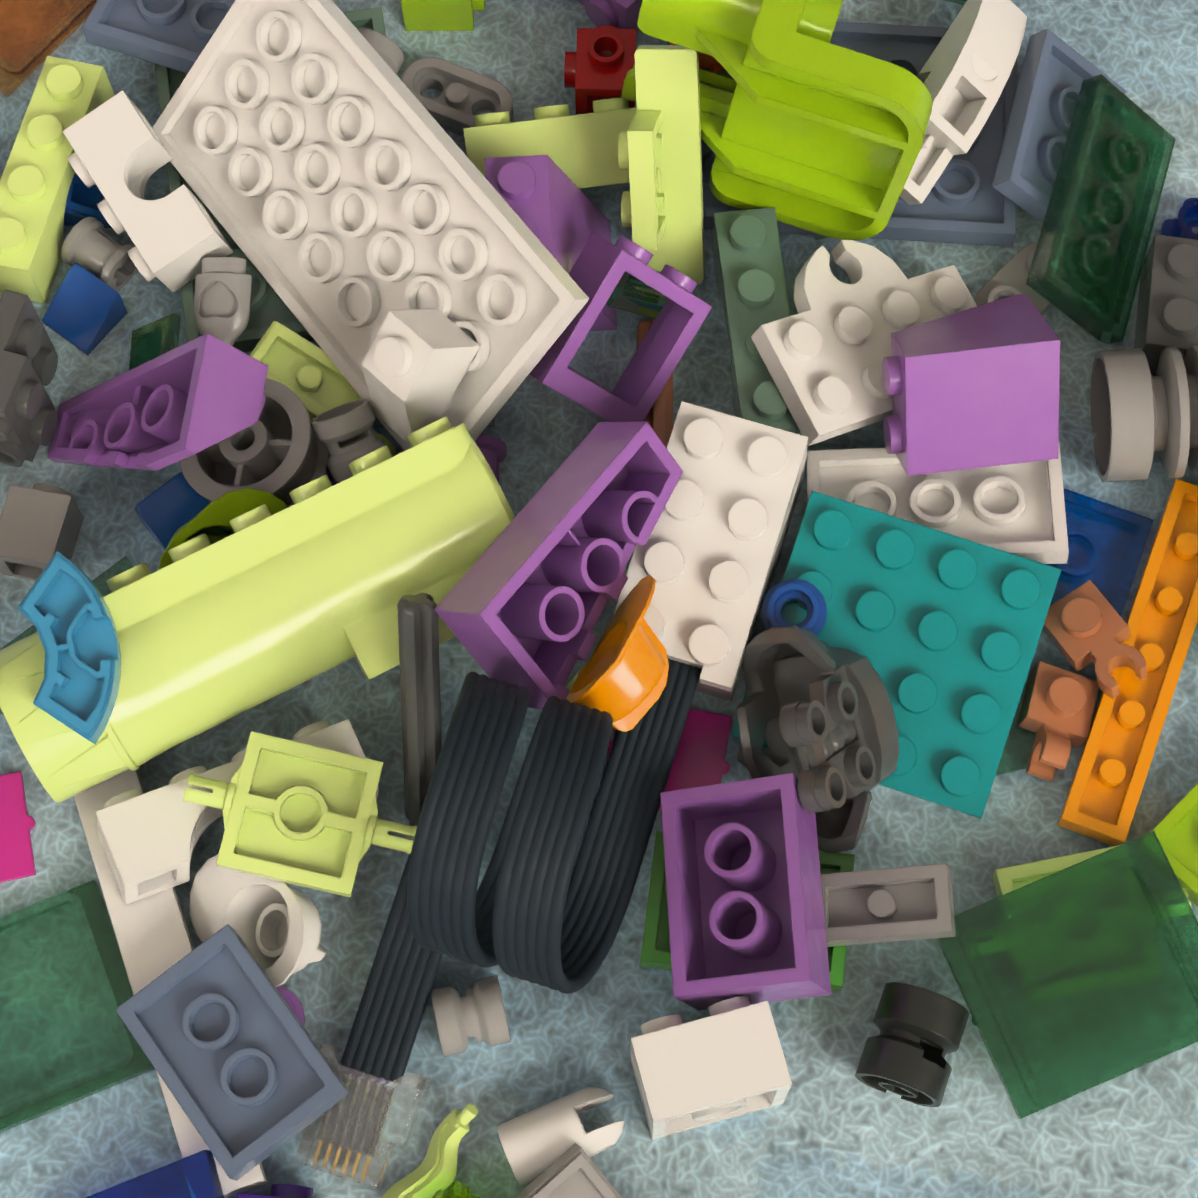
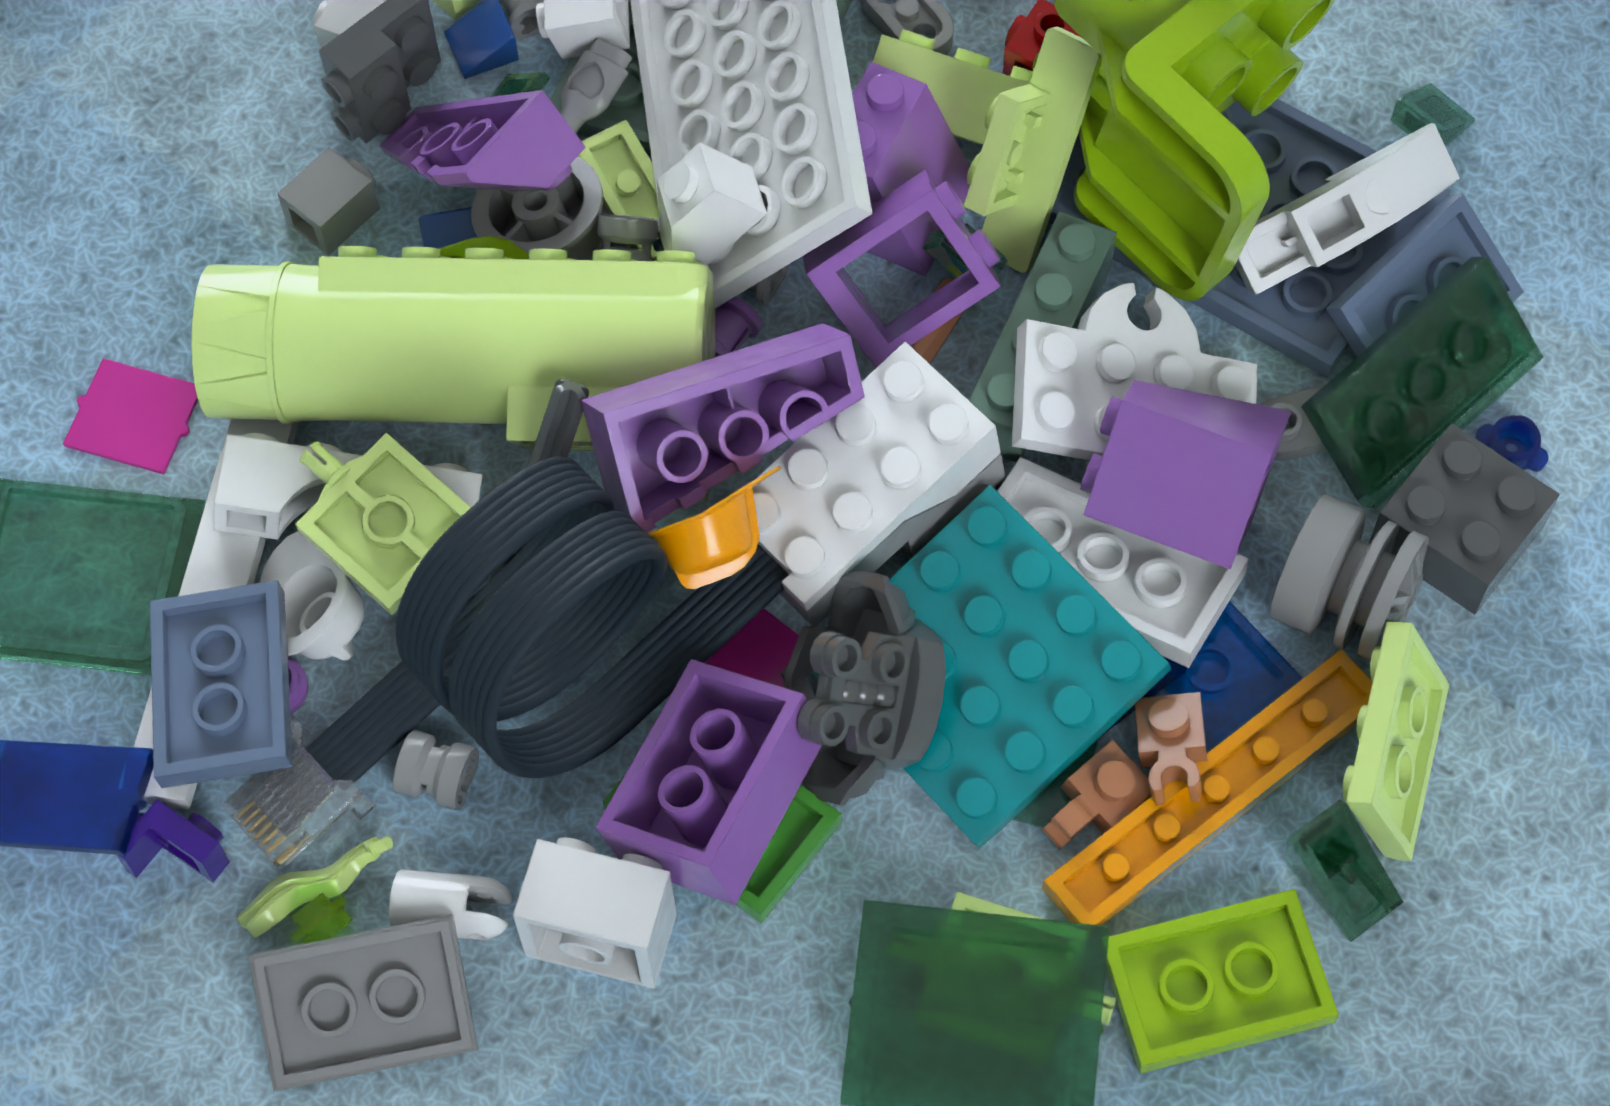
camera: 30 degrees right, 5 degrees down
(79, 648) = (280, 287): dark azure tile -> none
(799, 591) = (917, 558): blue plate -> none
(888, 905) = (832, 861): light grey plate -> none
(899, 1056) = (804, 975): pearl dark grey wheel -> none

